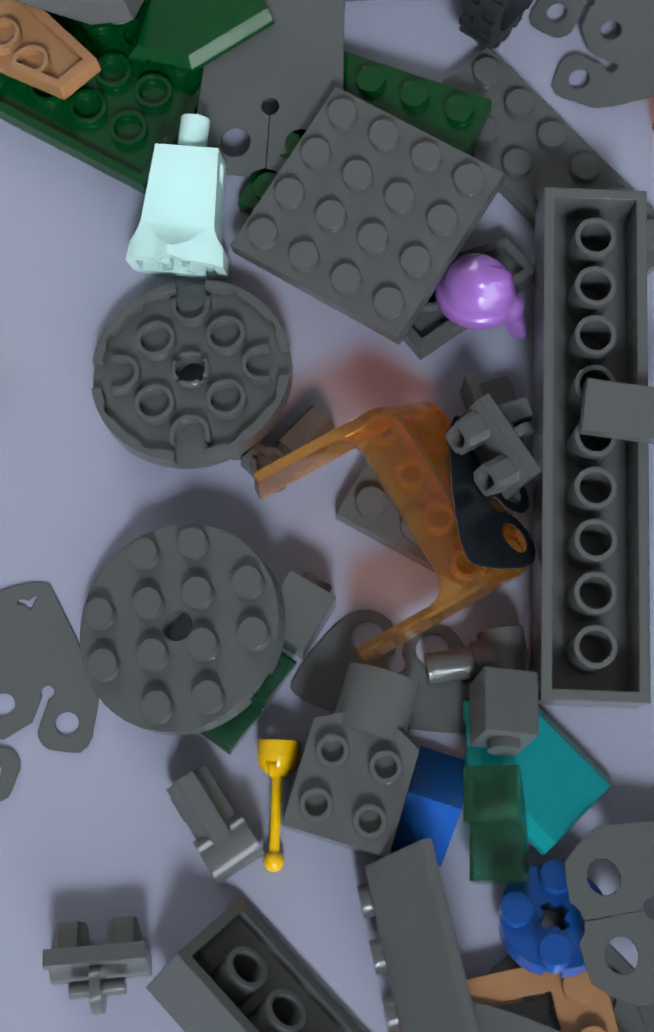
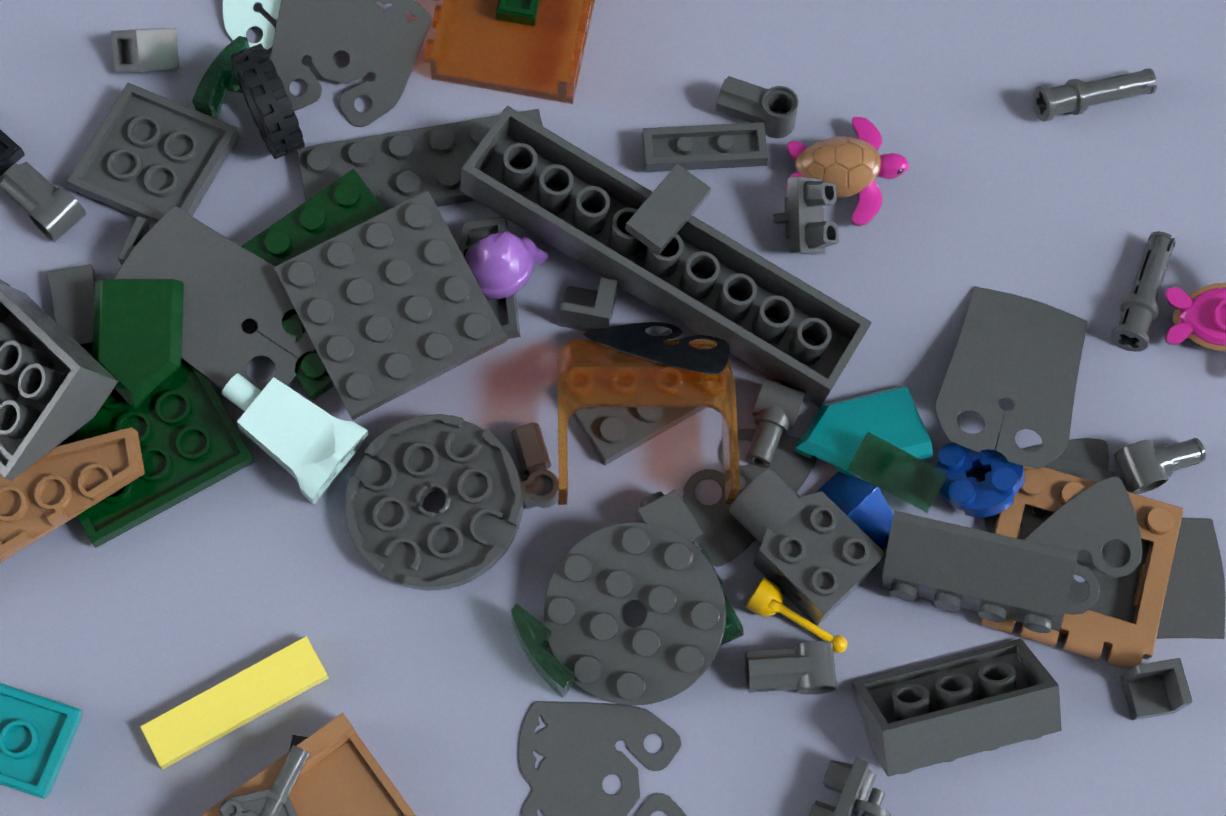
camera: 65 degrees left, 5 degrees down
(97, 548) = (534, 640): none -> clear green slope
(497, 445) = (631, 316): dark grey hips -> none
(503, 710) = (823, 421): dark grey brick -> none

